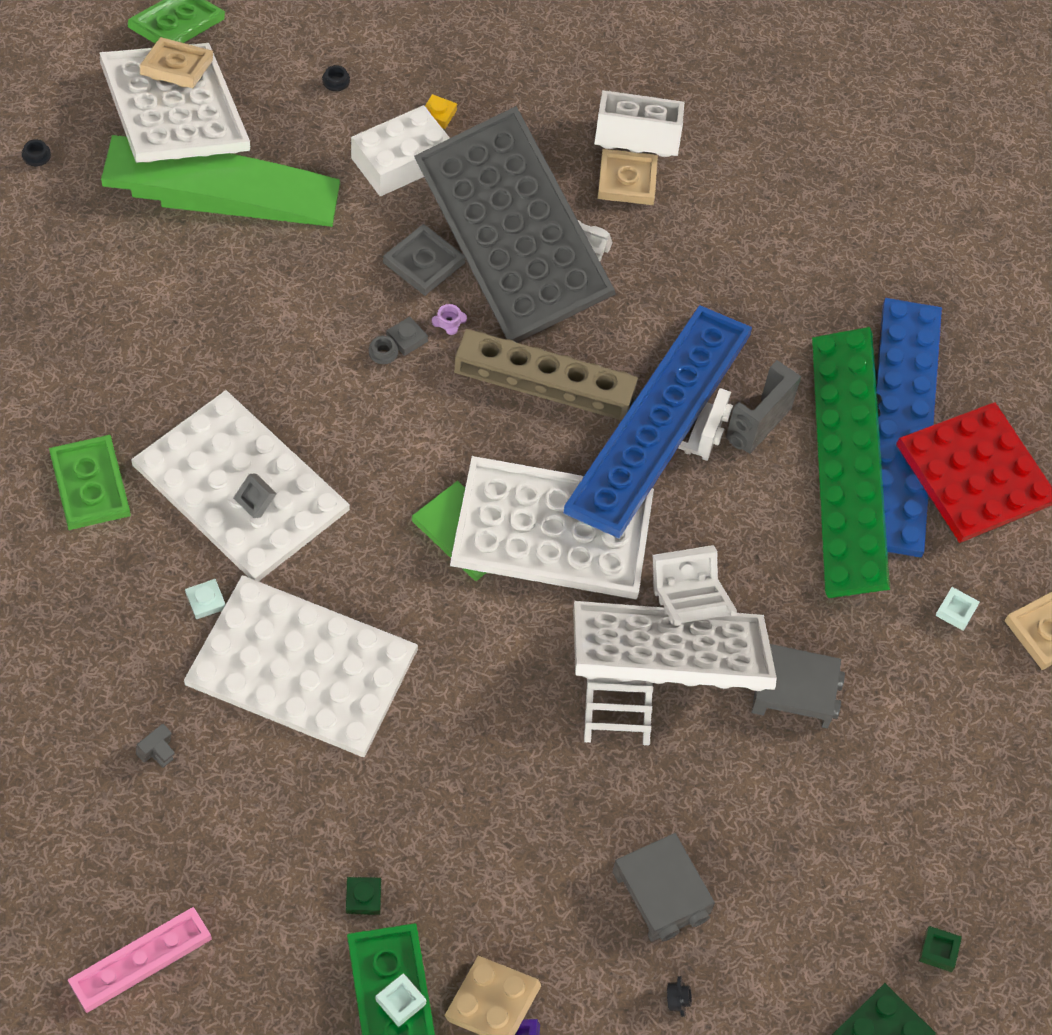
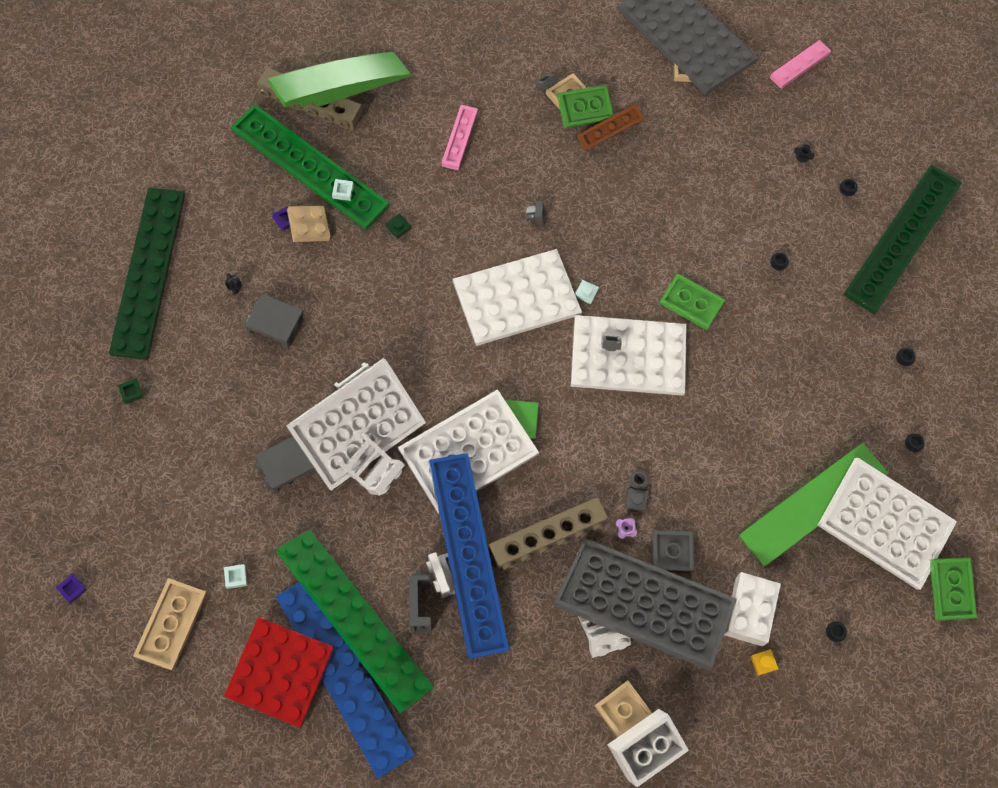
camera: 140 degrees right, 10 degrees up
(176, 62) = (912, 545): tan plate -> none

